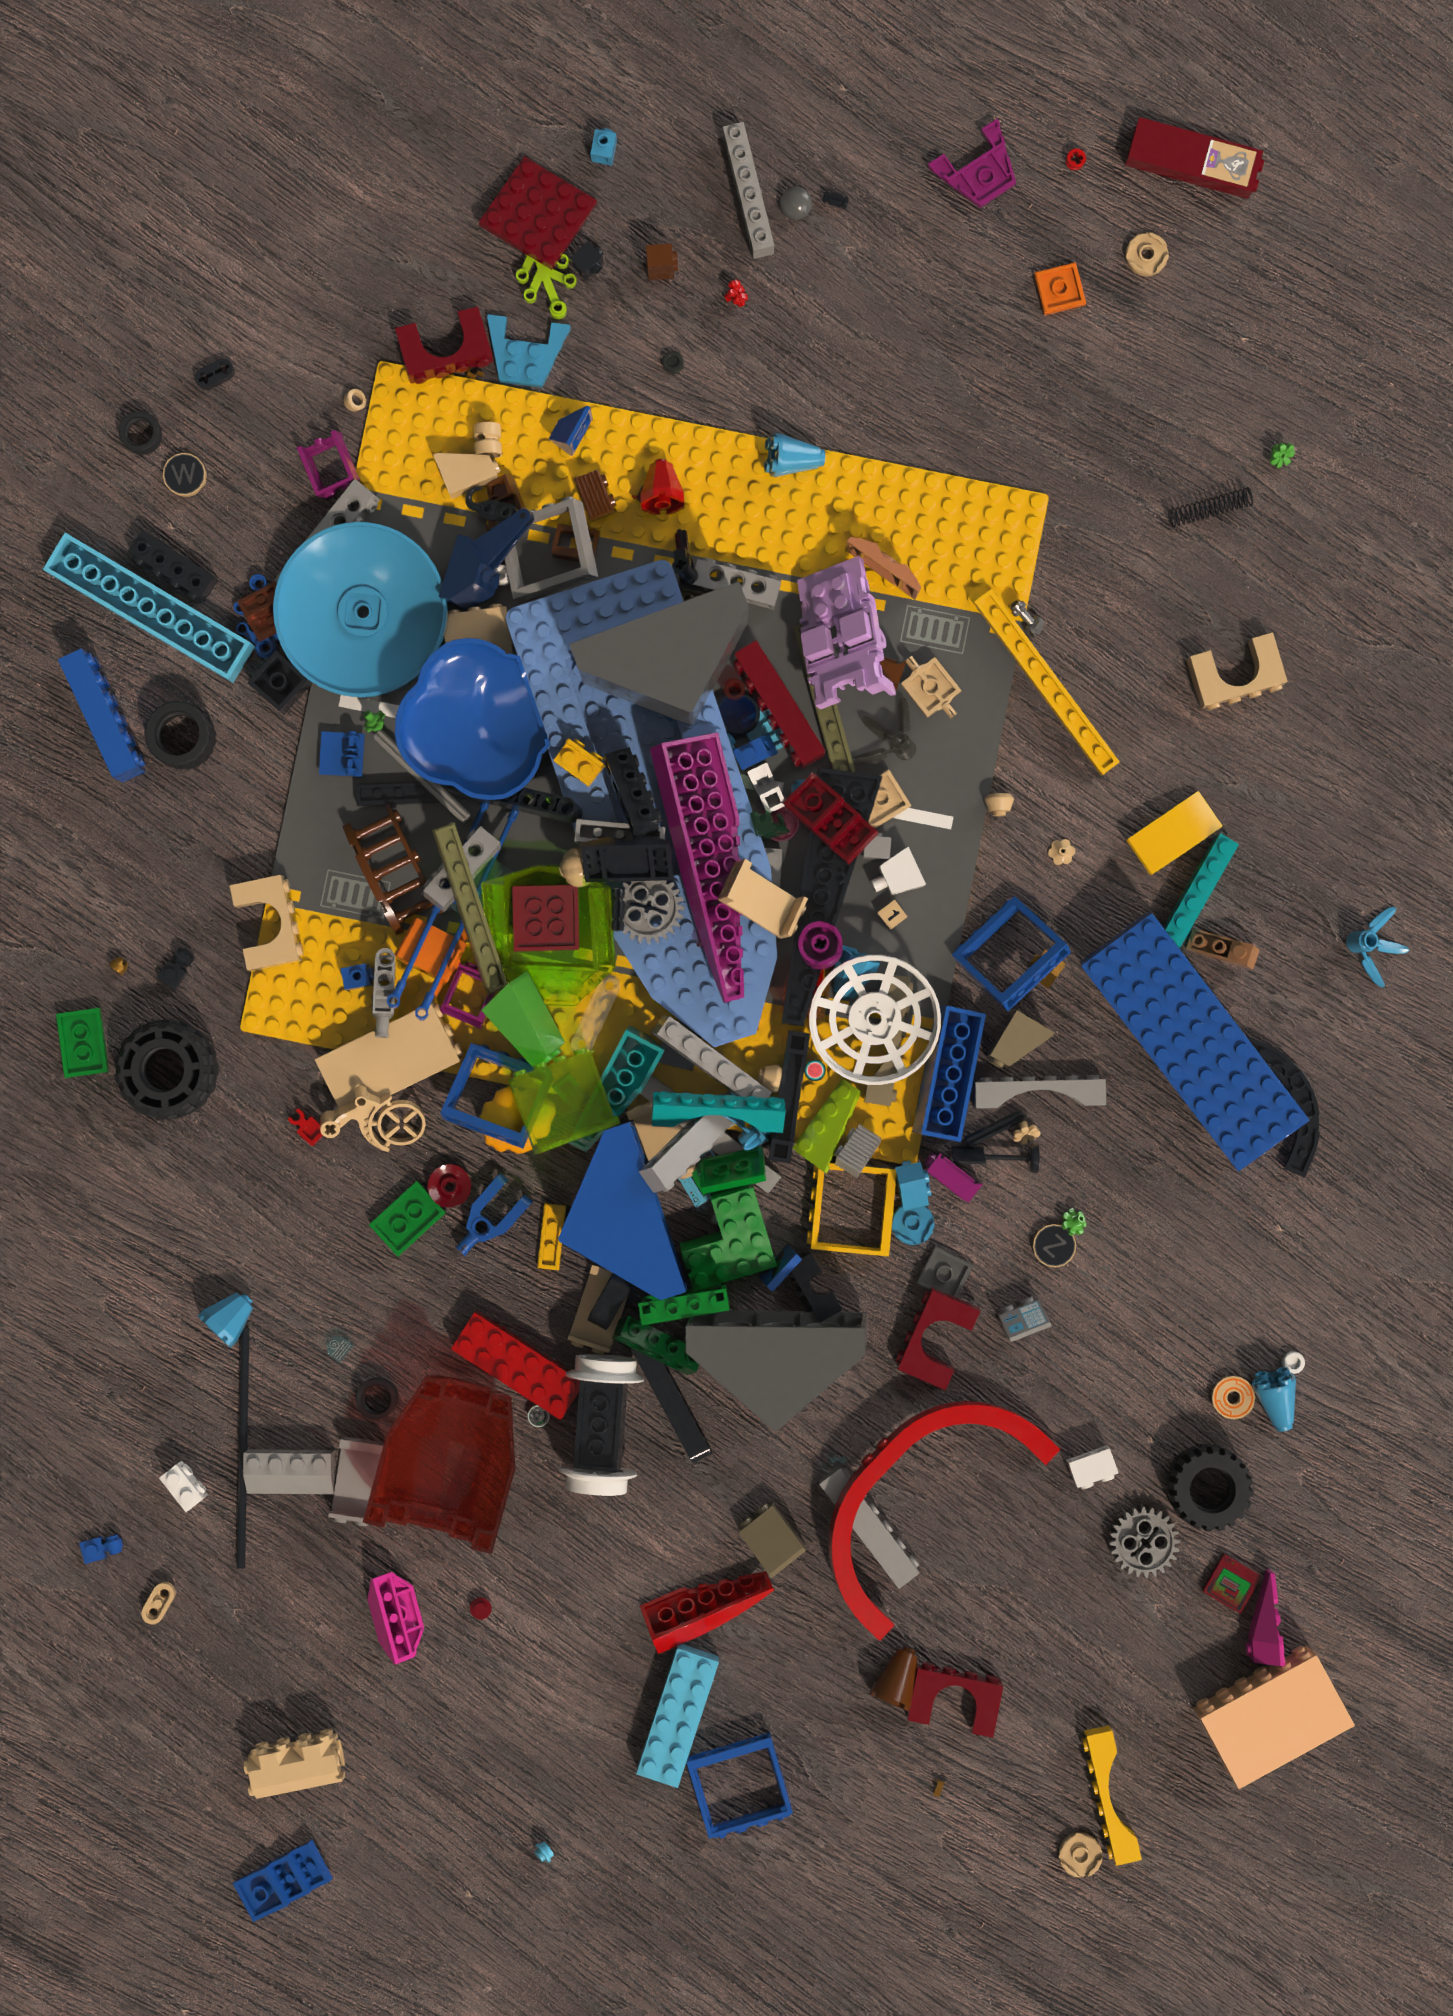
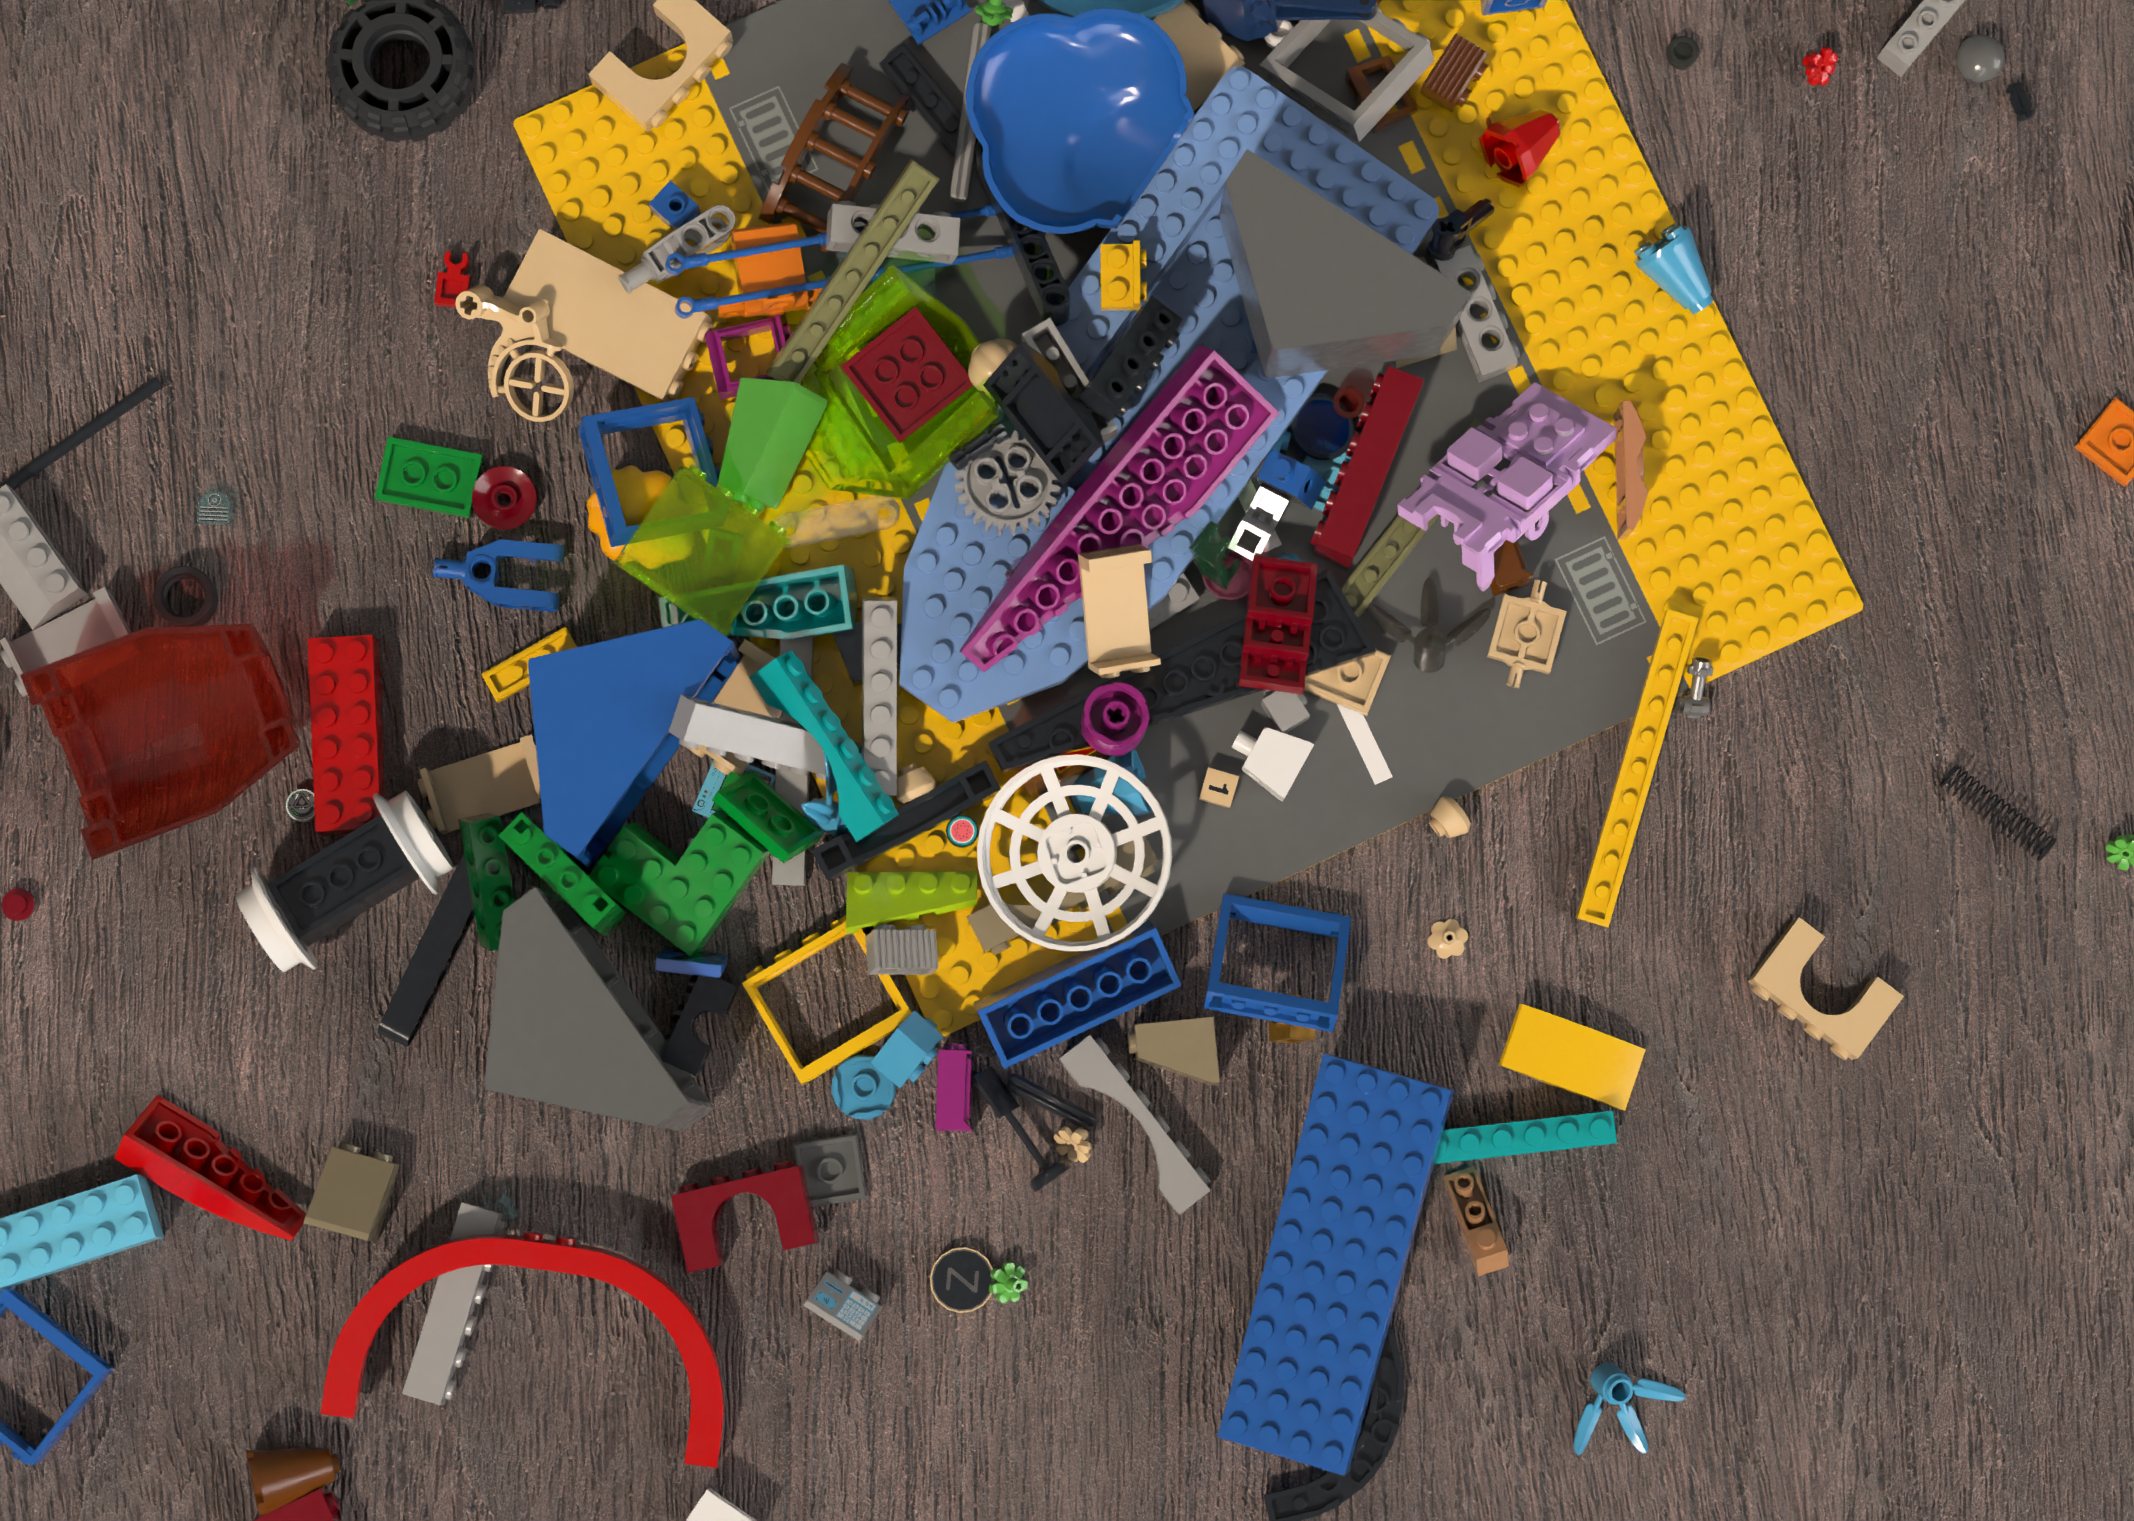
camera: 50 degrees right, 5 degrees down
(228, 1317) = (156, 350): dark azure cone -> none
(609, 1301) = (500, 786): black beam -> none

